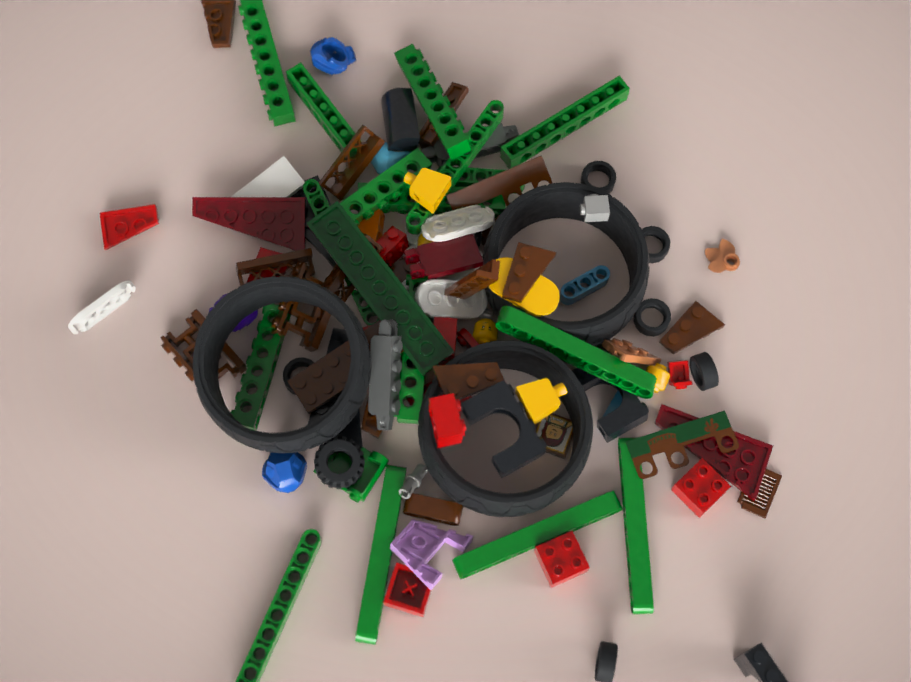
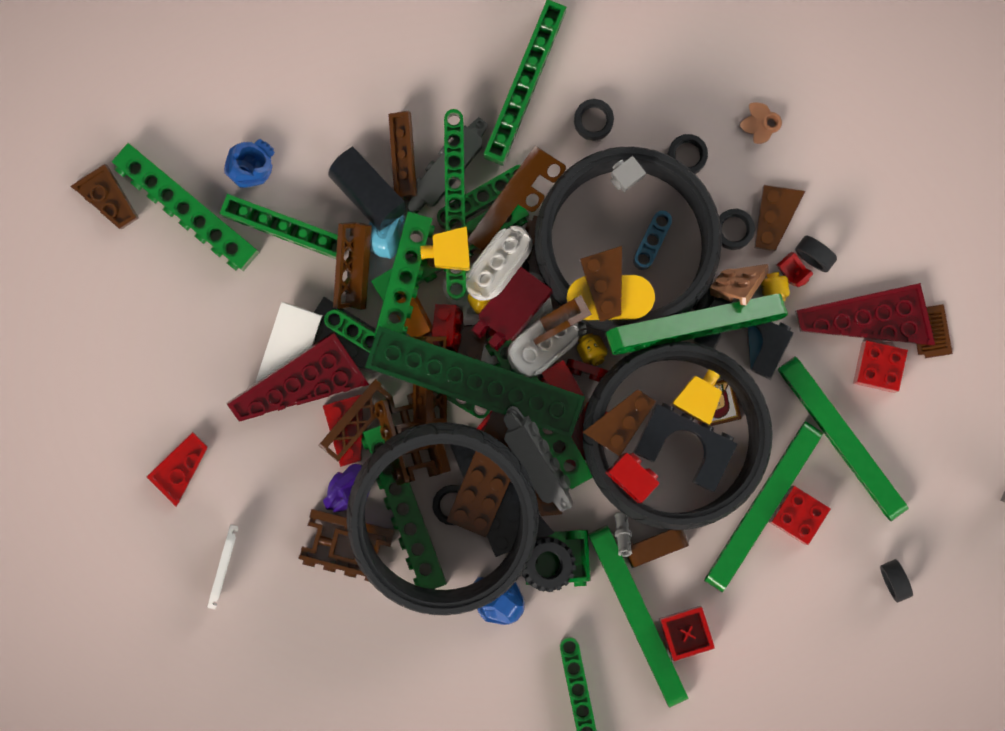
camera: 30 degrees left, 15 degrees up
(420, 542) = (667, 587): lavender wing -> none
(433, 103) = (324, 115): green brick -> none
(676, 437) = (828, 337): piece -> none

